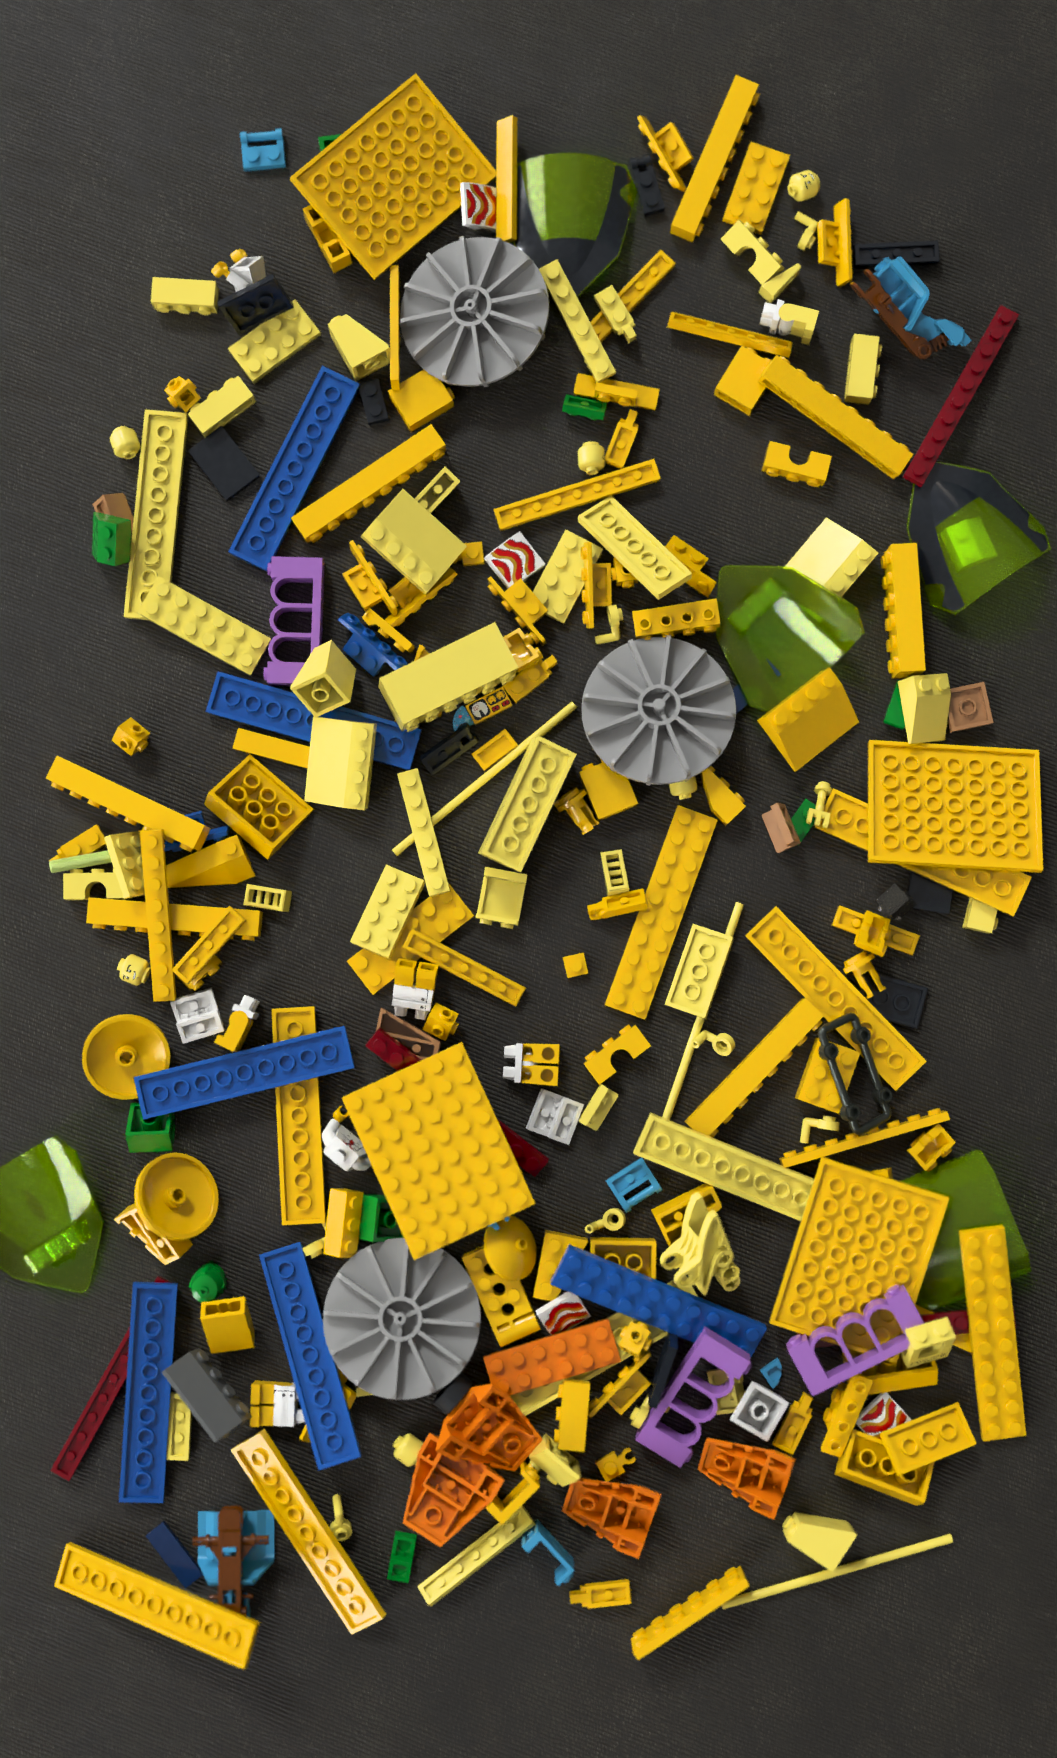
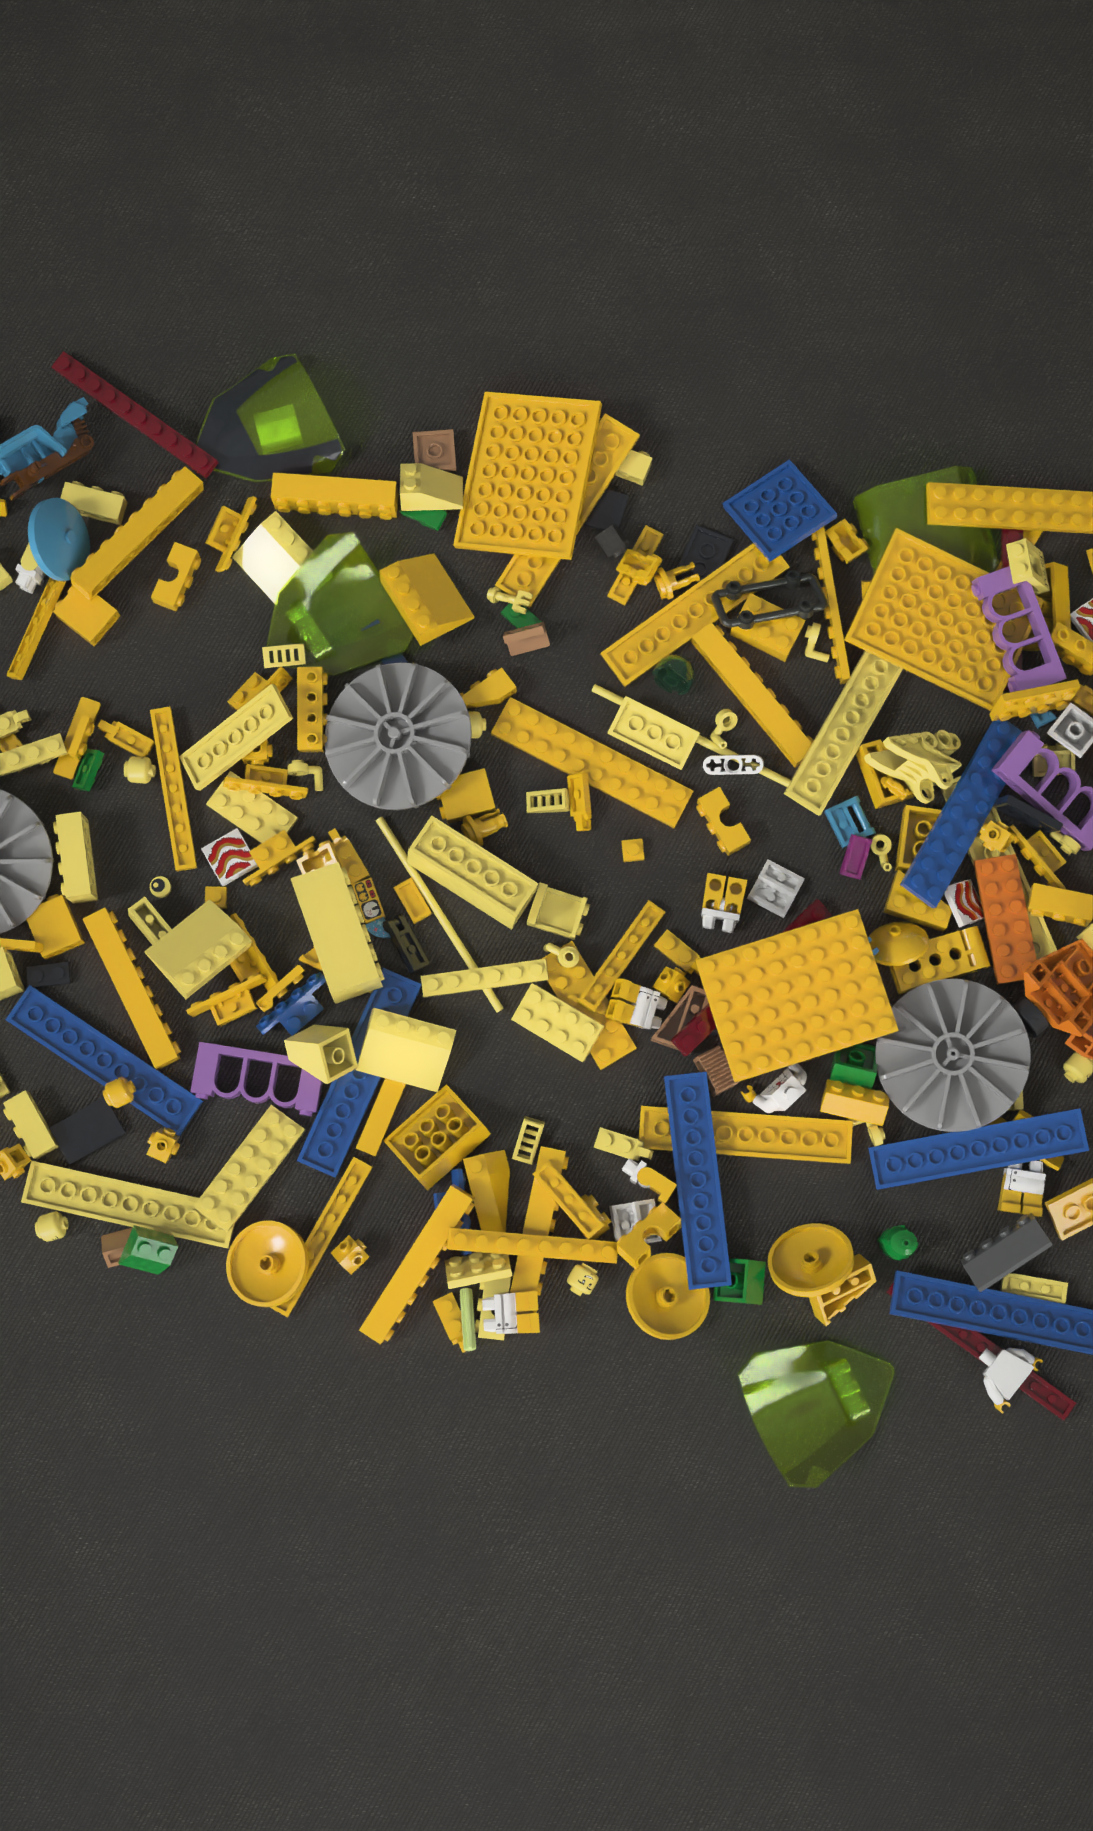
camera: 80 degrees left, 5 degrees down
(88, 905) = (506, 1316): none -> hips
(89, 1408) = (1006, 1373): none -> white torso
(111, 657) = (267, 1263): none -> yellow dish
(146, 706) = (330, 1222): none -> yellow plate
(198, 1039) = (659, 1222): none -> yellow arch
(216, 538) = (163, 1144): none -> yellow brick
(227, 1325) = (941, 1225): yellow brick -> none
(262, 486) = (119, 1092): none -> yellow head
(272, 992) = (621, 1145): none -> light yellow hinge
(362, 1075) = (717, 1069): none -> medium nougat brick
(458, 906) = (561, 954): none -> light yellow plate
(475, 497) = (160, 887): none -> light yellow tile
(476, 1025) = (677, 952): none -> yellow hinge
(491, 408) = (76, 857): none -> light yellow brick
(597, 1195) = (855, 856): none -> magenta tile
(598, 1107) = (772, 845): light yellow bracket -> none
(671, 1229) = (896, 788): none -> yellow piece
(673, 1074) = (717, 759): none -> white beam
(733, 600) = (301, 654): none -> light yellow slope
(764, 985) = (674, 673): none -> clear green cylinder
(785, 1365) = (1034, 700): none -> yellow plate
(816, 336) = (58, 538): none -> dark azure dish
(851, 508) = (227, 531): none -> yellow bracket
(954, 1073) = (779, 510): none -> blue plate

